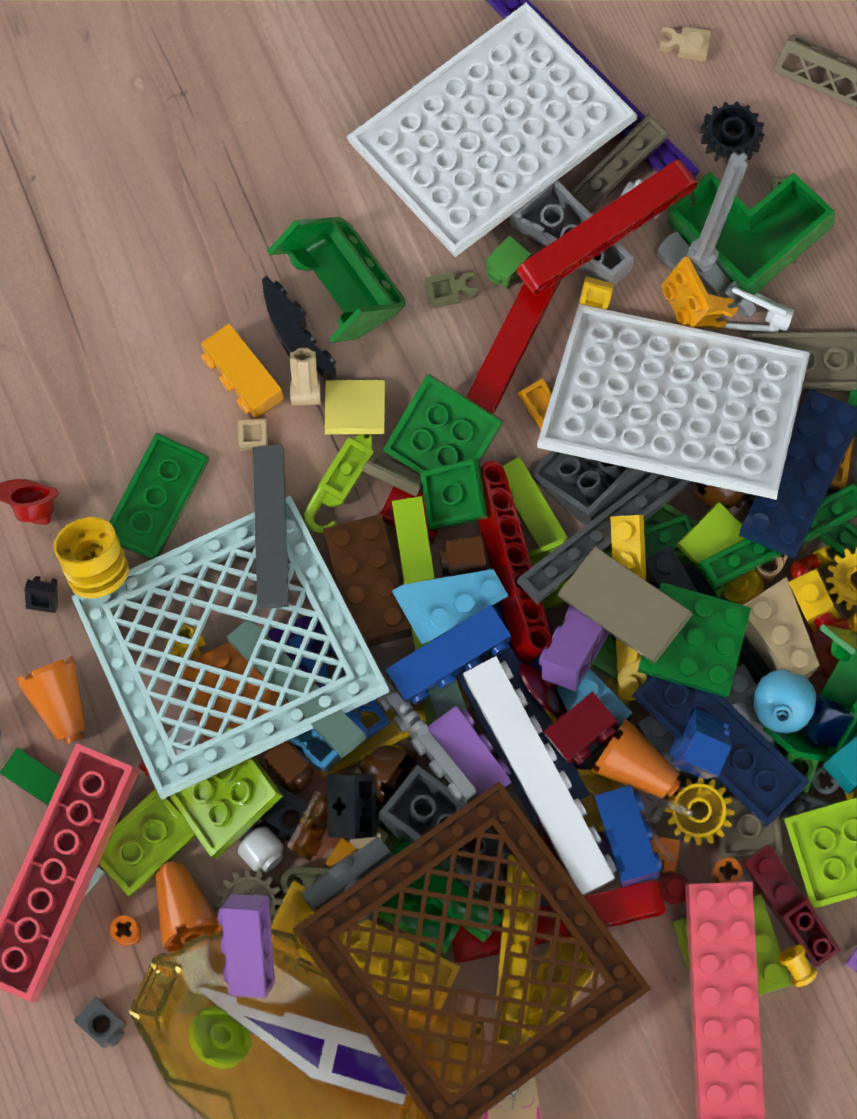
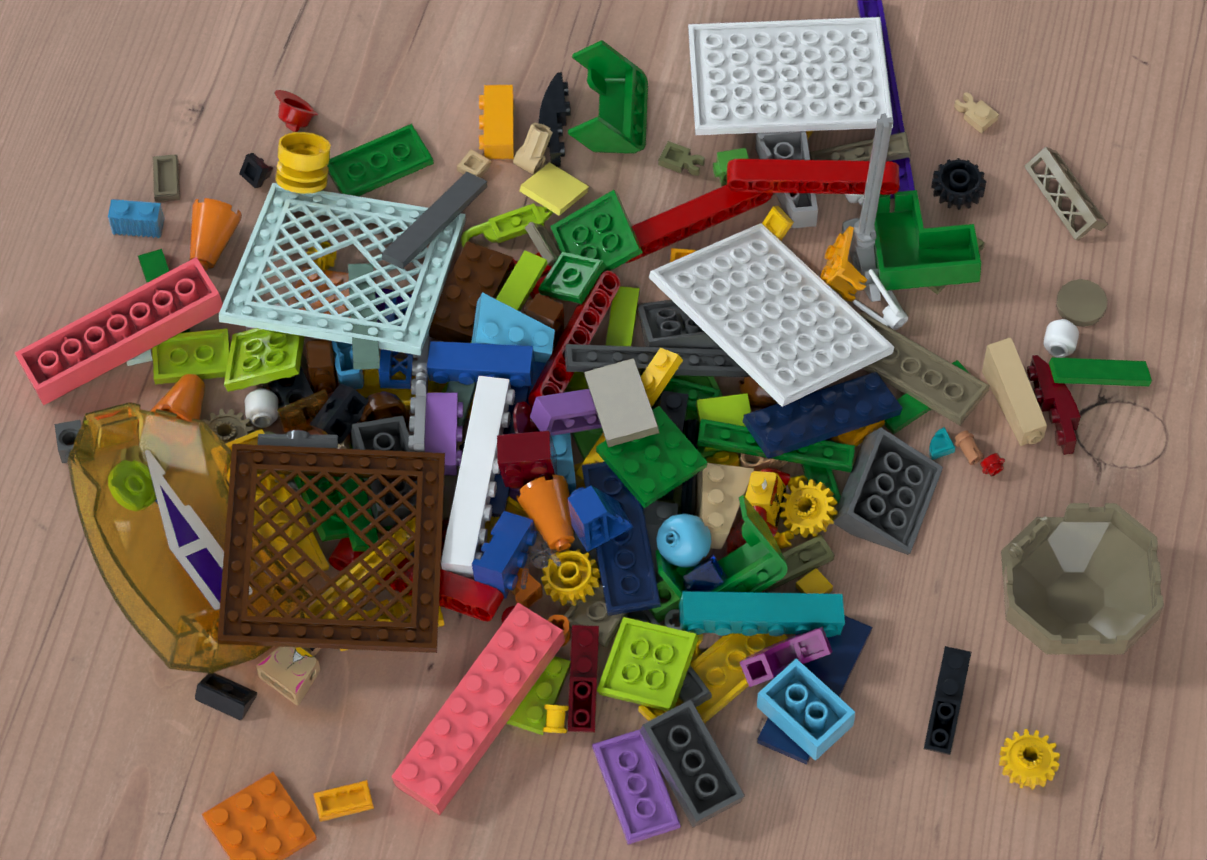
camera: 35 degrees right, 15 degrees down
(116, 932) = (134, 393): orange bush -> none
(247, 945) = (195, 436): medium lavender brick -> none

